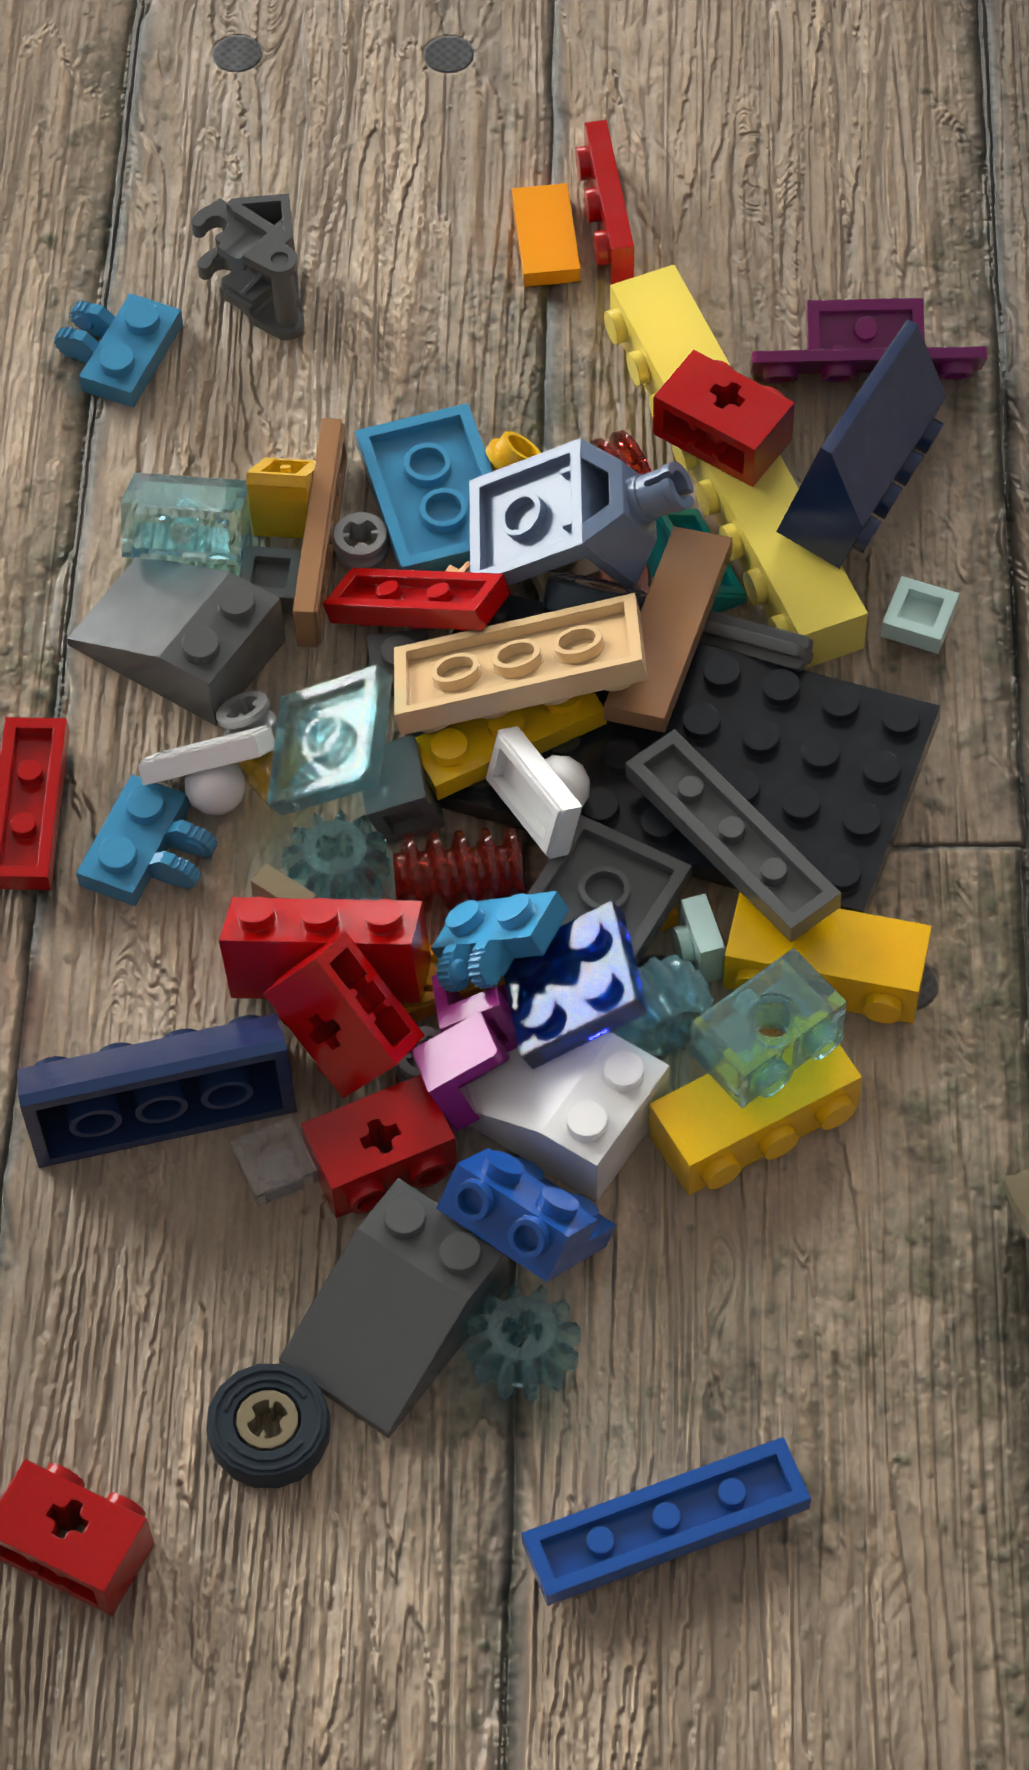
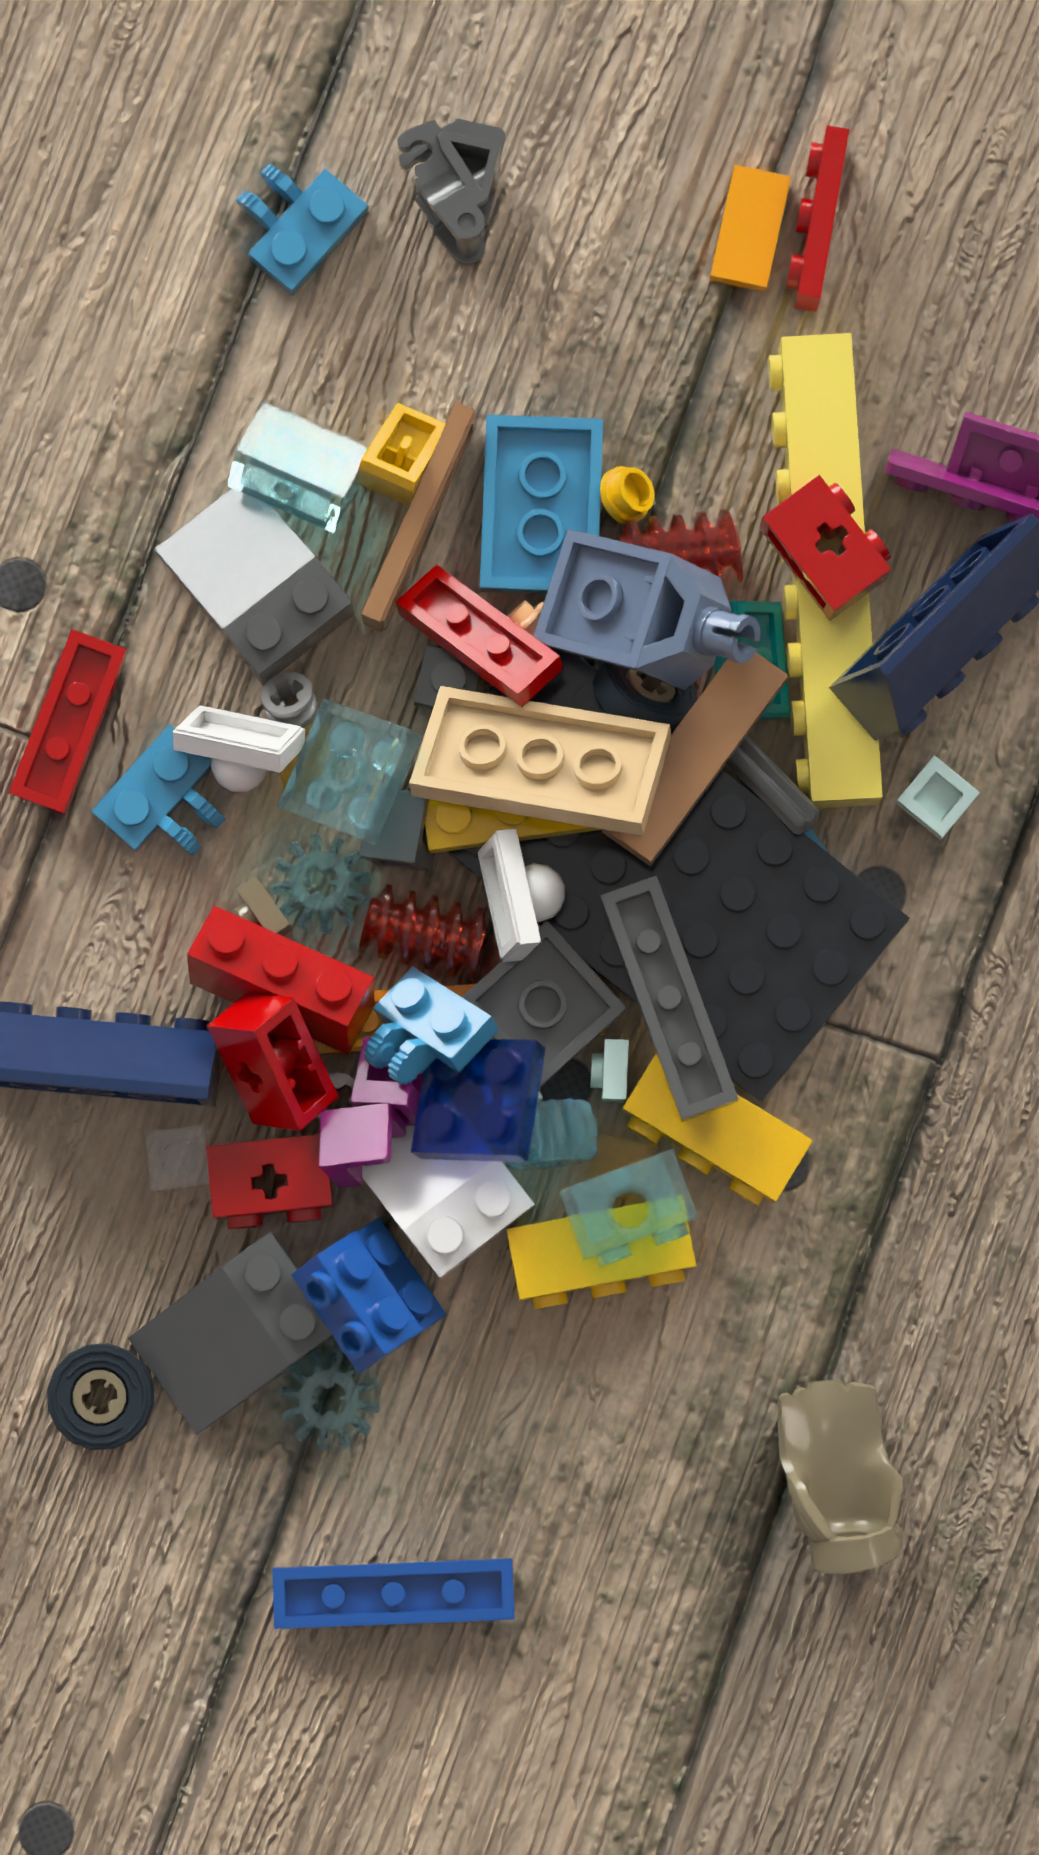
camera: 15 degrees right, 25 degrees up
(273, 571) = (357, 551): dark grey plate -> none
(360, 527) = (459, 517): light grey bush -> none

